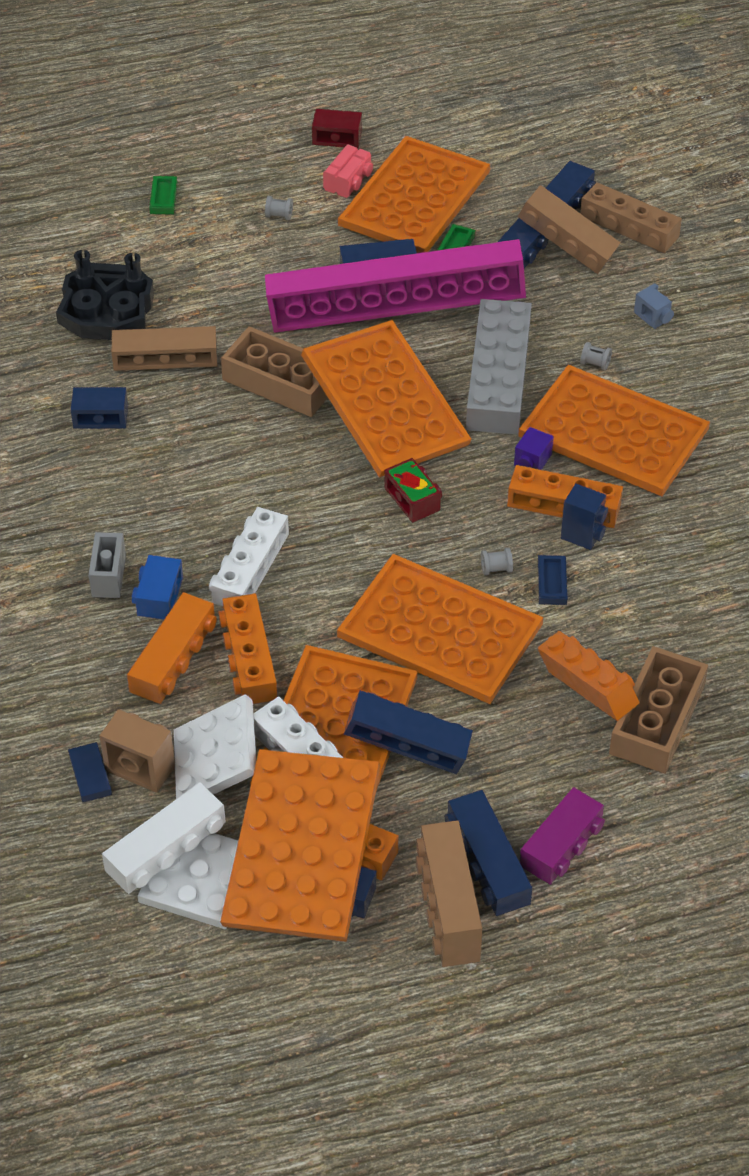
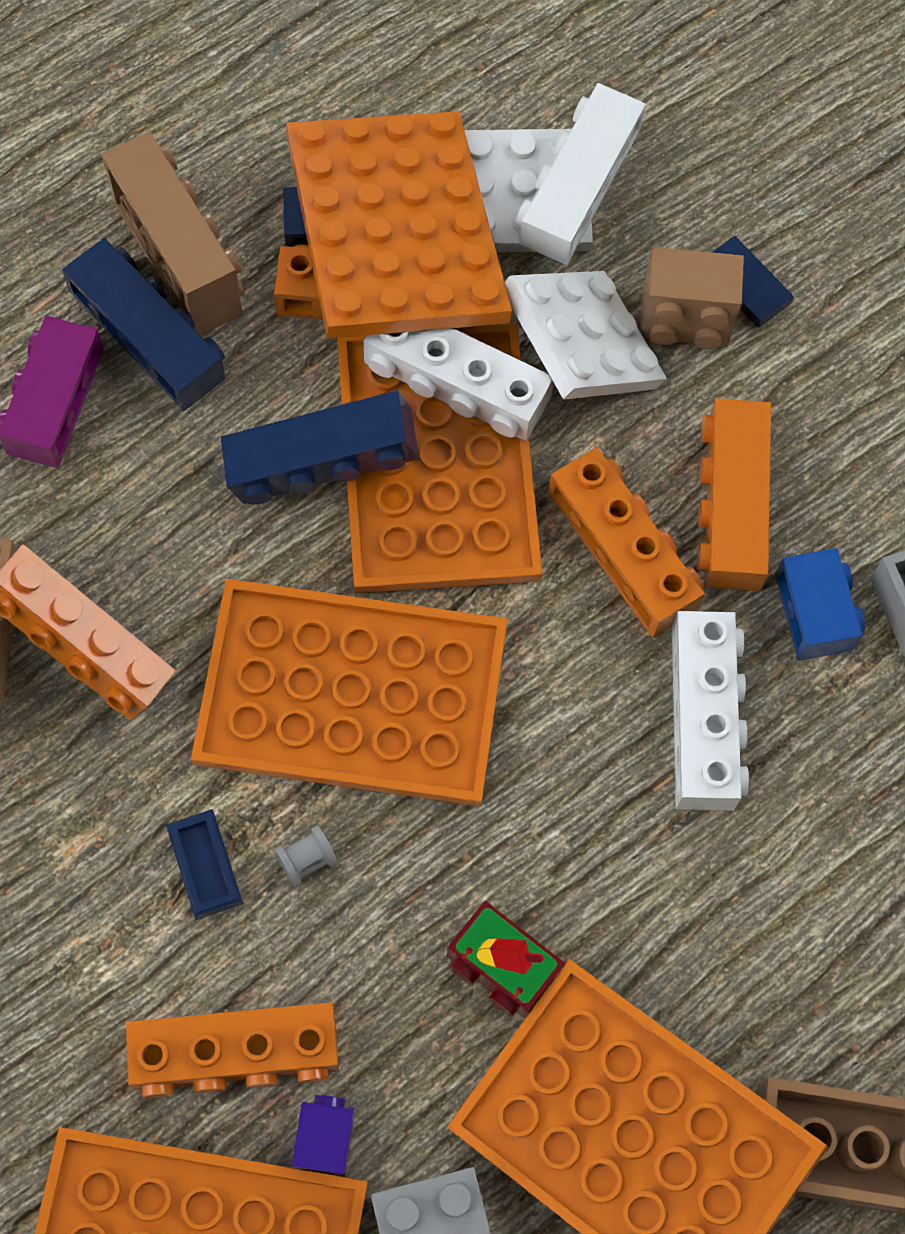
camera: 155 degrees right, 20 degrees up
(584, 517) = (177, 981): dark blue brick -> none

